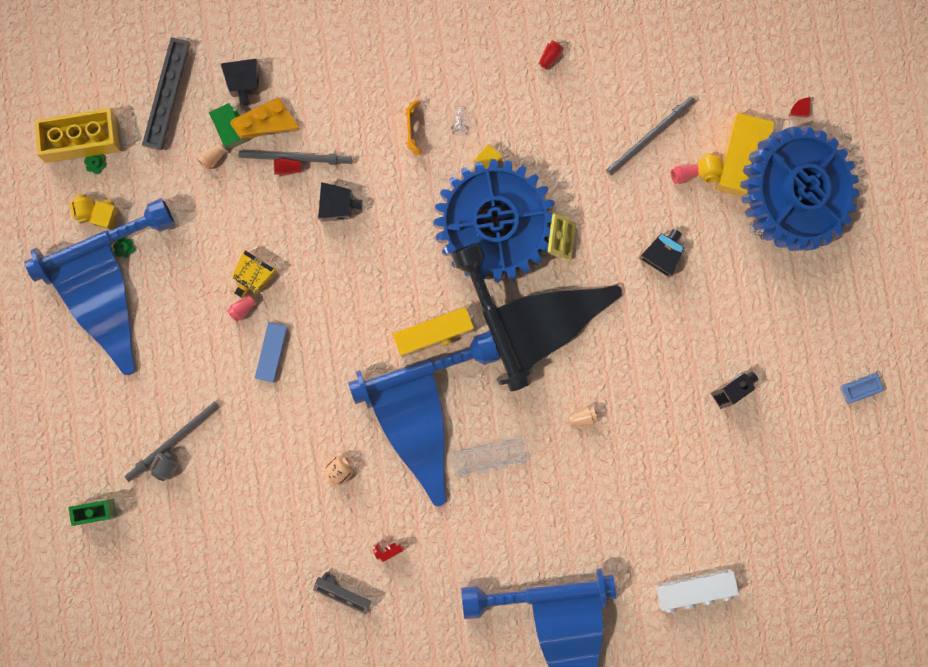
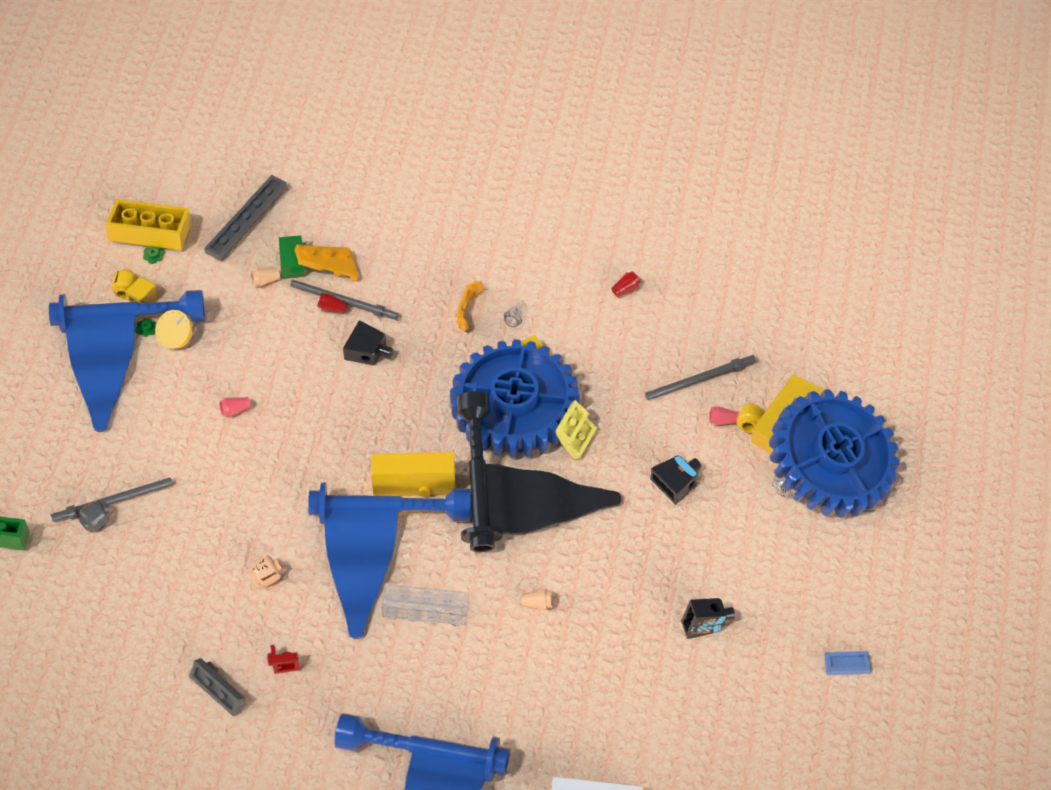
camera: 20 degrees right, 30 degrees down
(152, 246) = (174, 329): none -> yellow tile
(242, 79) = (323, 223): black torso -> none
(251, 274) = (258, 379): yellow torso -> none
(271, 352) = (245, 452): medium blue tile -> none
(801, 108) = (864, 393): red tile -> none

